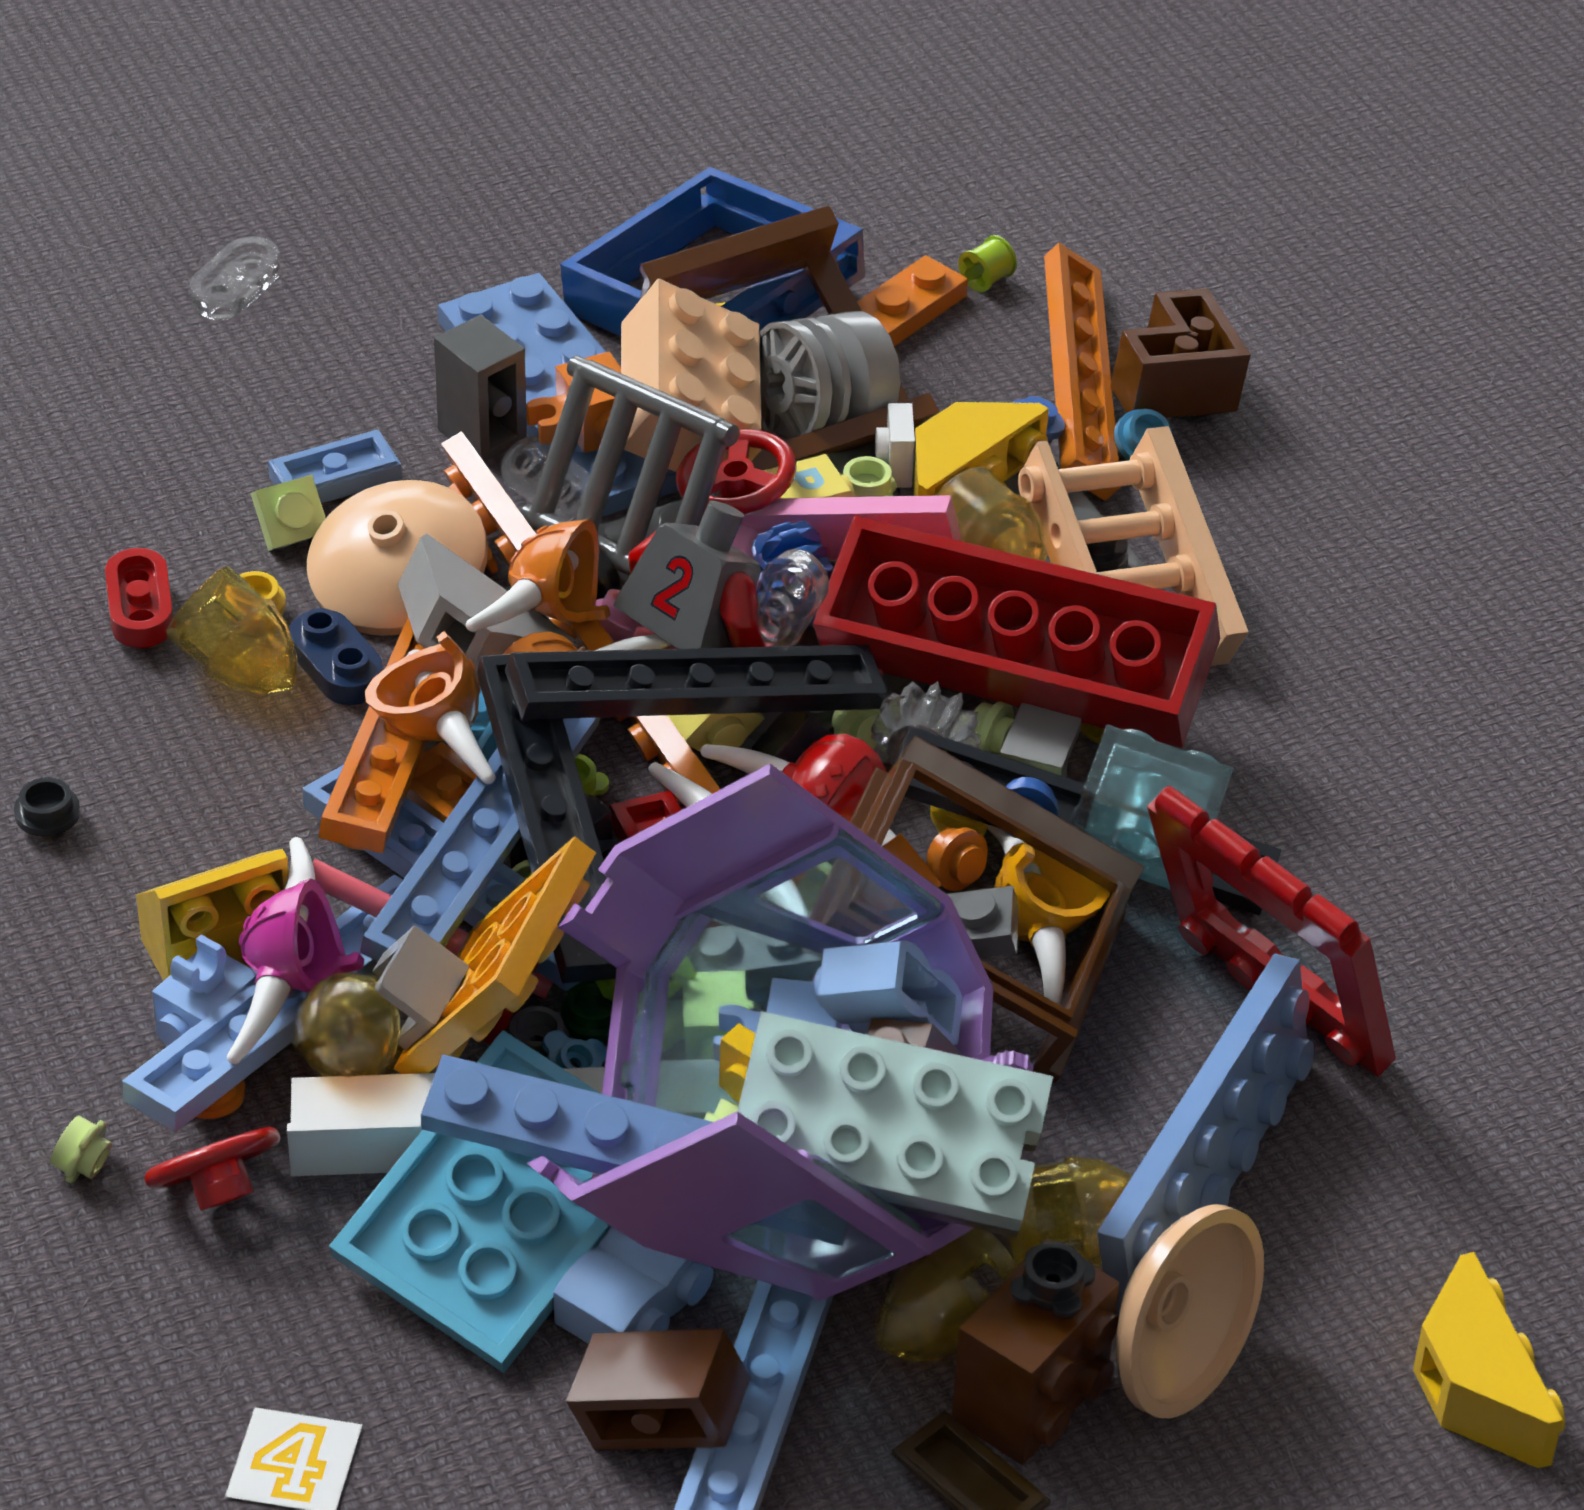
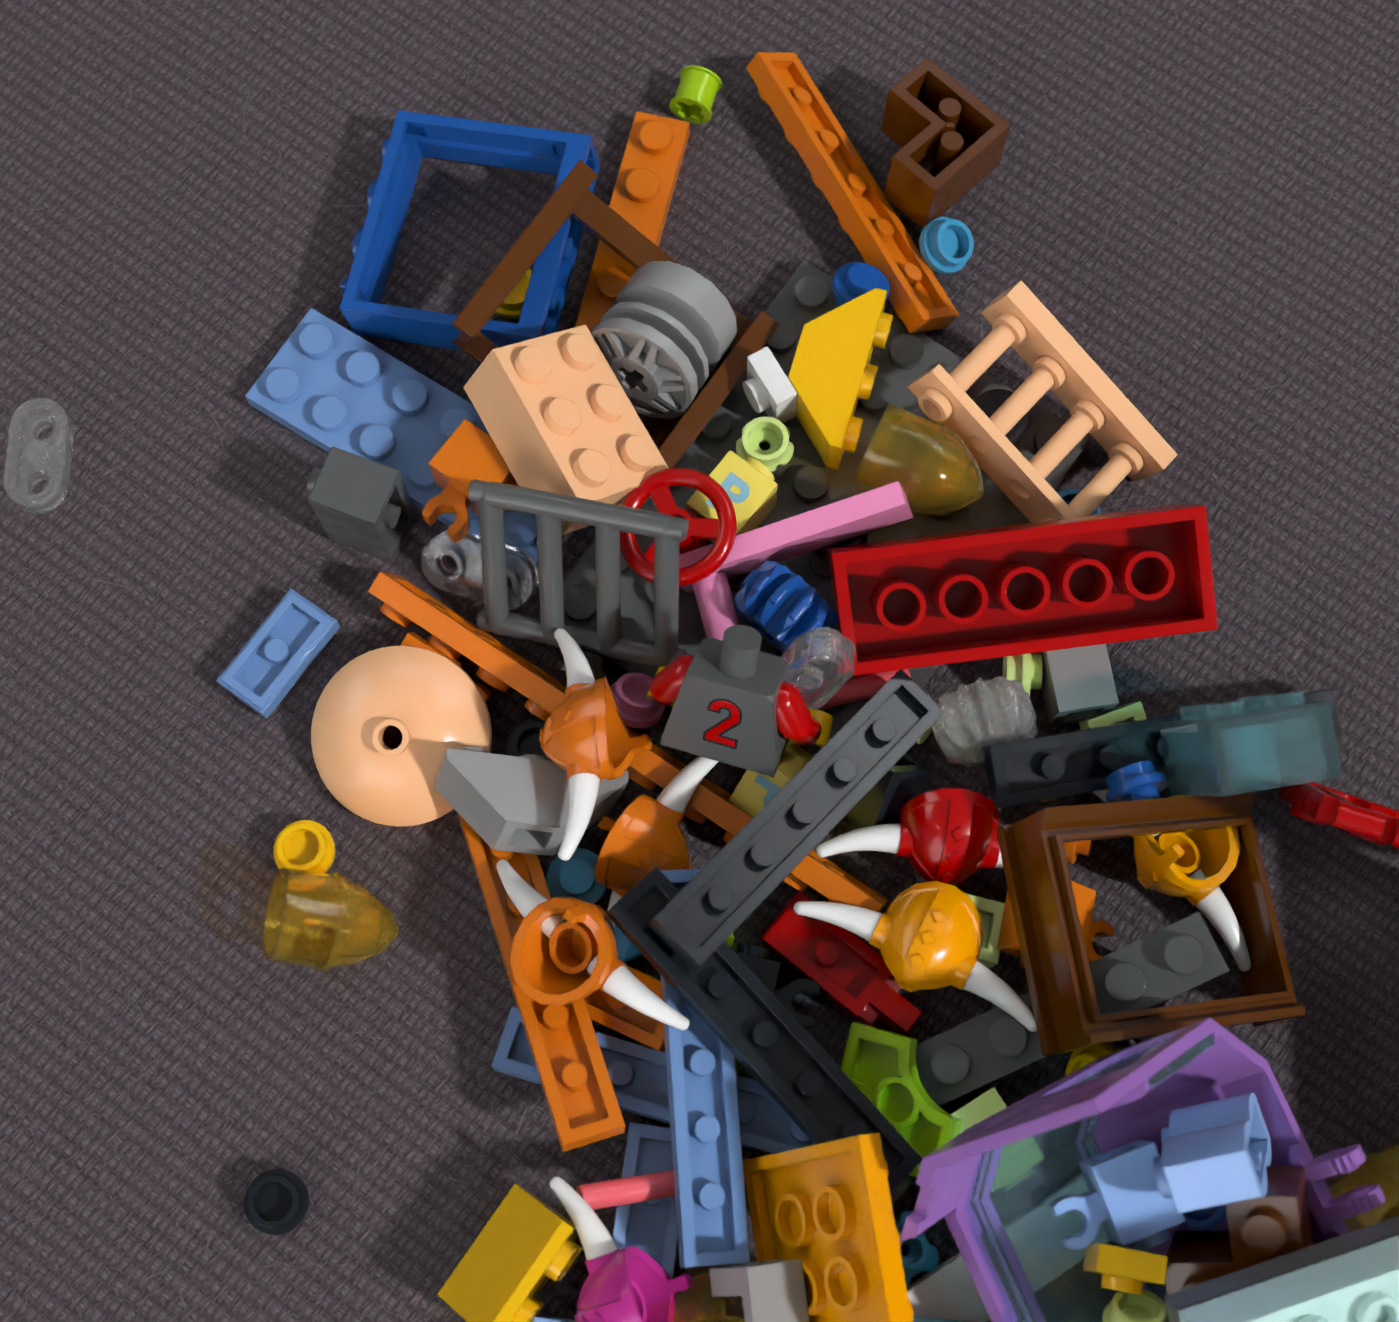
camera: 25 degrees left, 30 degrees up
(138, 597) = (202, 908): red plate -> none
(288, 512) = (273, 732): yellowish green plate -> none
(334, 655) = (411, 872): dark blue plate -> none

